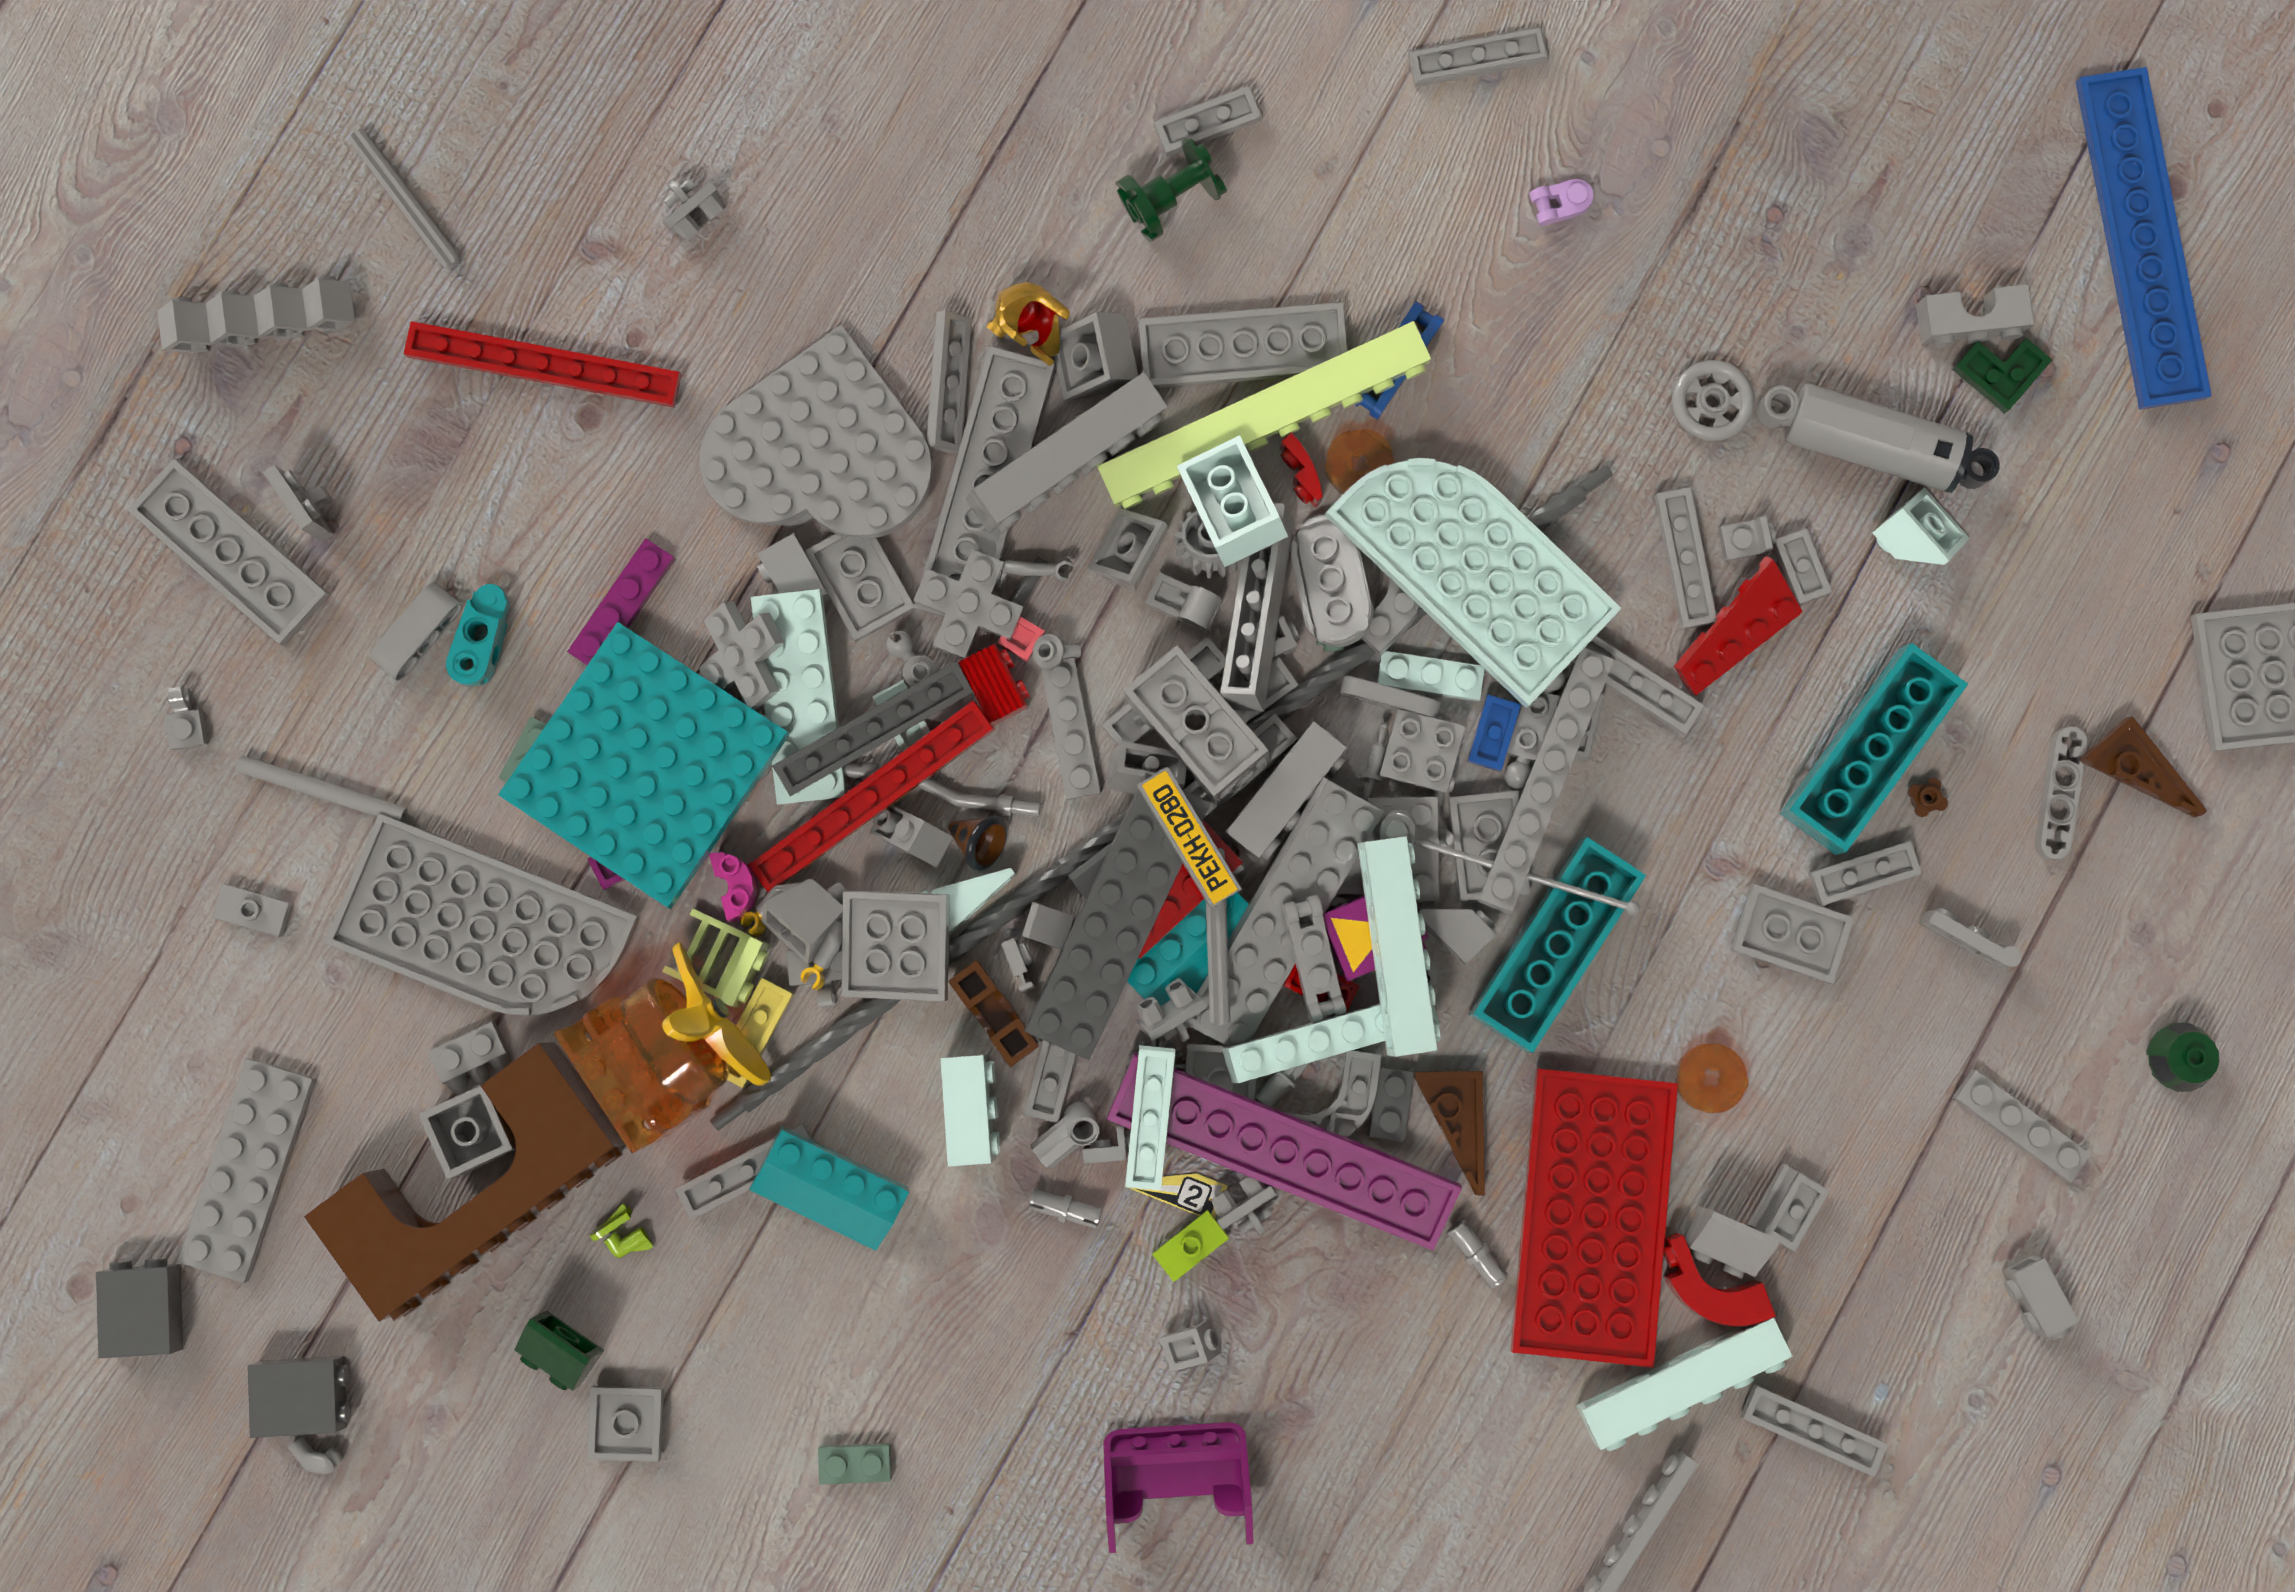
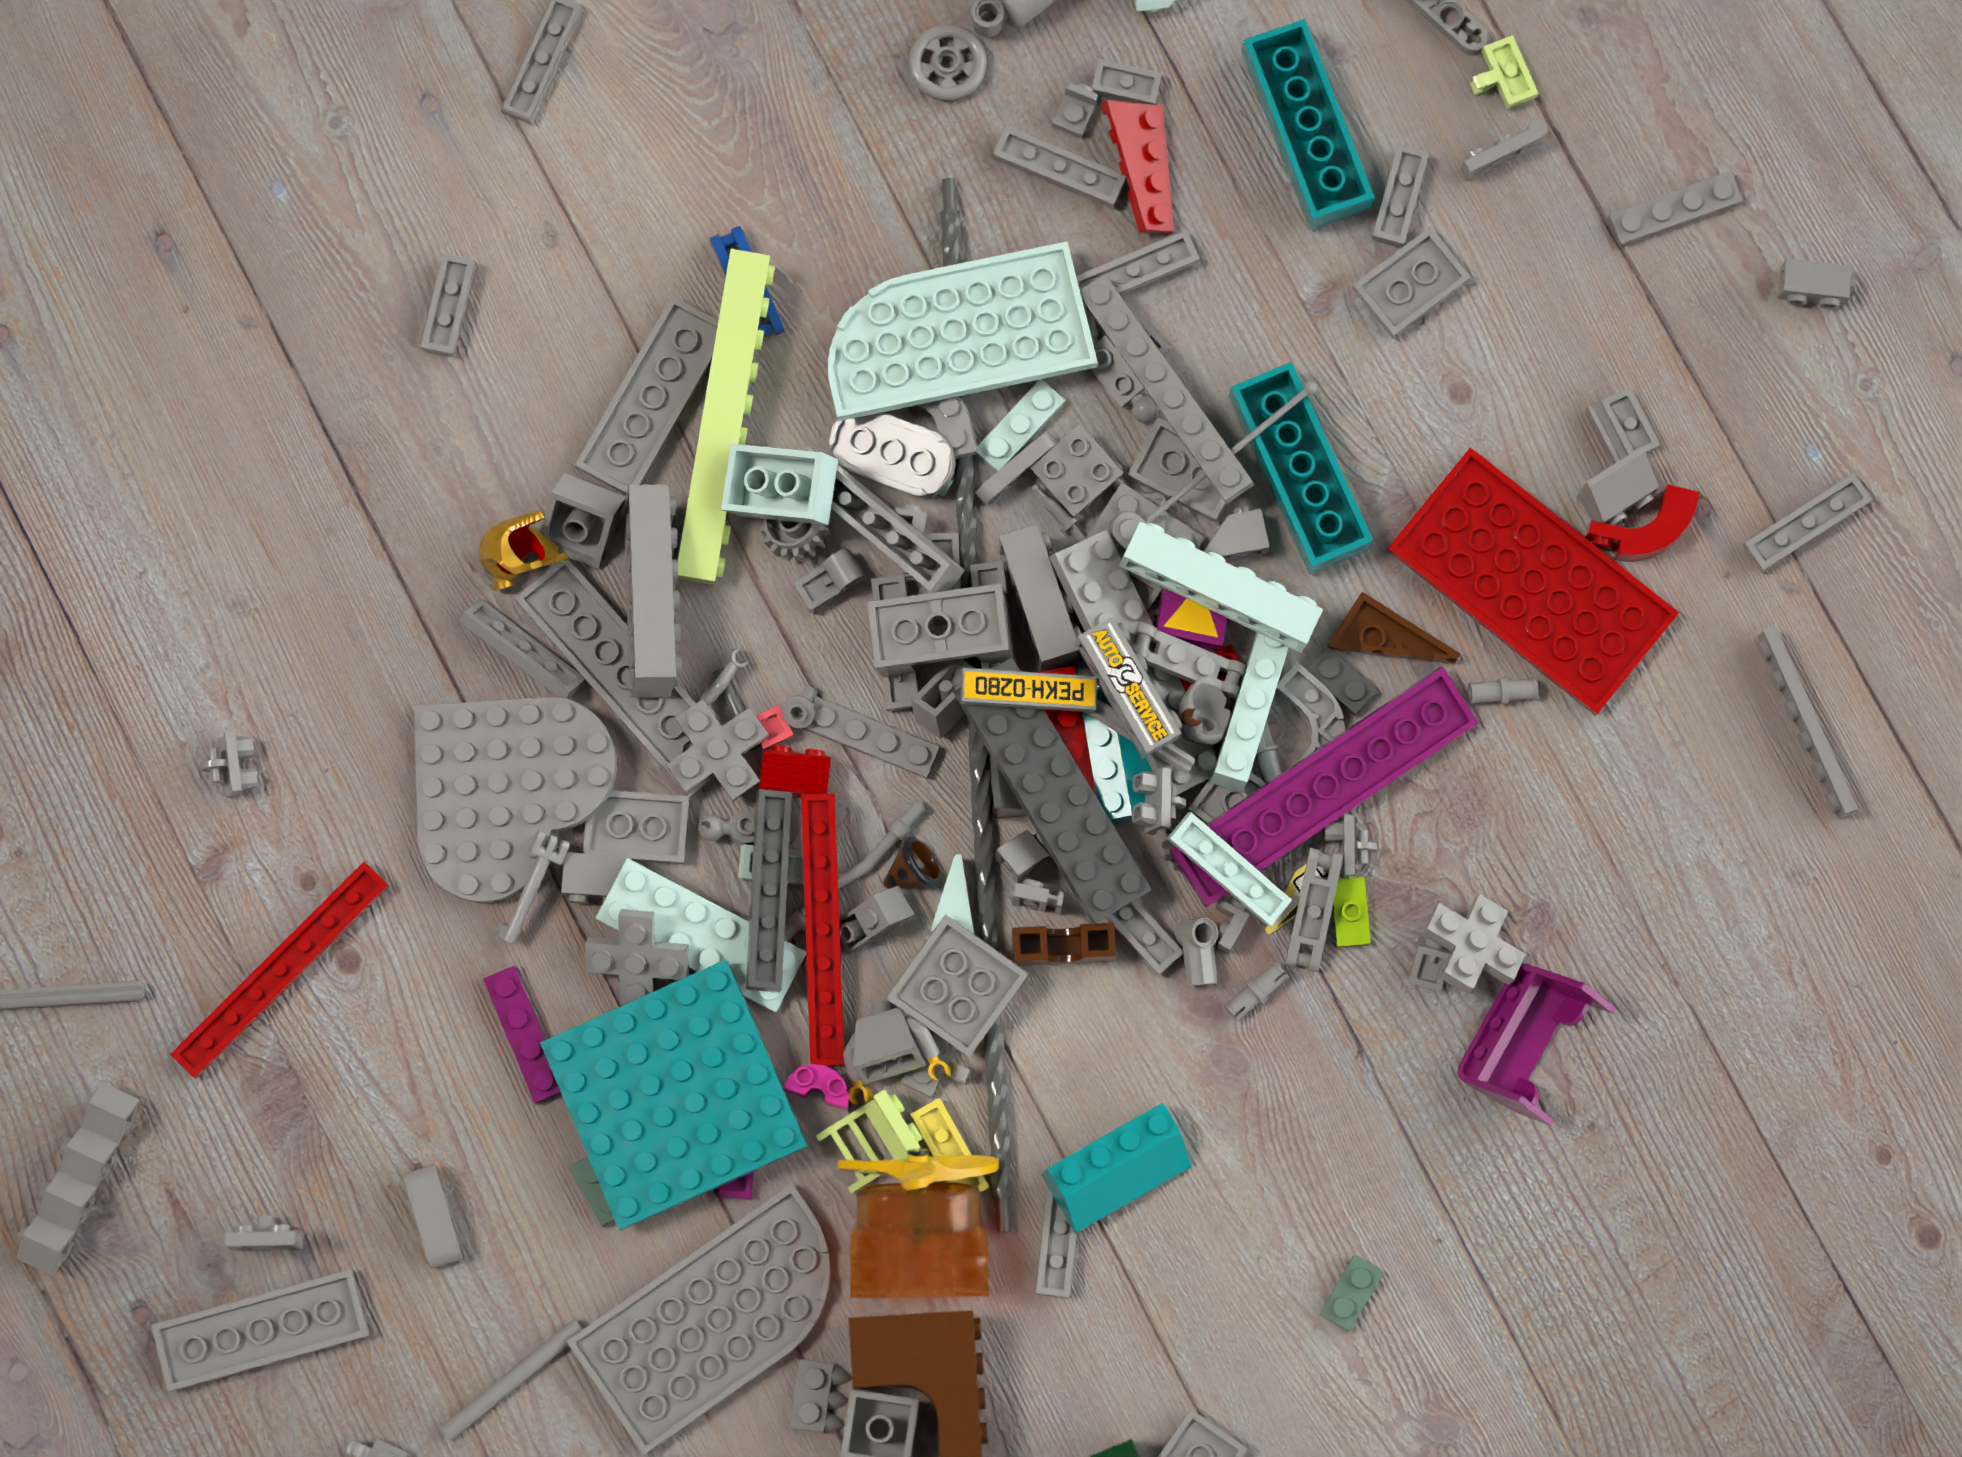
camera: 60 degrees left, 5 degrees down
(490, 608) = (454, 1145): teal piece -> none
(635, 1241) = (1052, 1373): lime piece -> none
(699, 534) = (545, 854): none -> light grey hinge
(969, 1110) = (1127, 1012): light aqua brick -> none
(1128, 548) = (756, 595): light grey slope -> none
(1159, 195) = (486, 380): dark green piece -> none
(1168, 1213) = (1314, 910): none -> light grey plate
(1230, 1375) = (1473, 944): none -> light grey plate
(1250, 923) = (1128, 687): none -> brick
(1276, 1004) = (1204, 713): none -> light grey hair
(1306, 480) = (800, 419): red slope -> none
(1355, 444) = (793, 361): clear orange plate -> none
(1493, 733) = (1099, 406): blue plate -> none
(1572, 197) = (707, 61): lavender plate -> none
(1683, 1382) = (1706, 596): light aqua brick -> none
(1732, 1078) = (1495, 405): clear orange plate -> none
(1918, 801) = (1375, 117): reddish brown plate -> none
(2043, 894) = (1506, 72): none -> yellowish green plate
(2182, 1057) = (1701, 52): dark green cone -> none

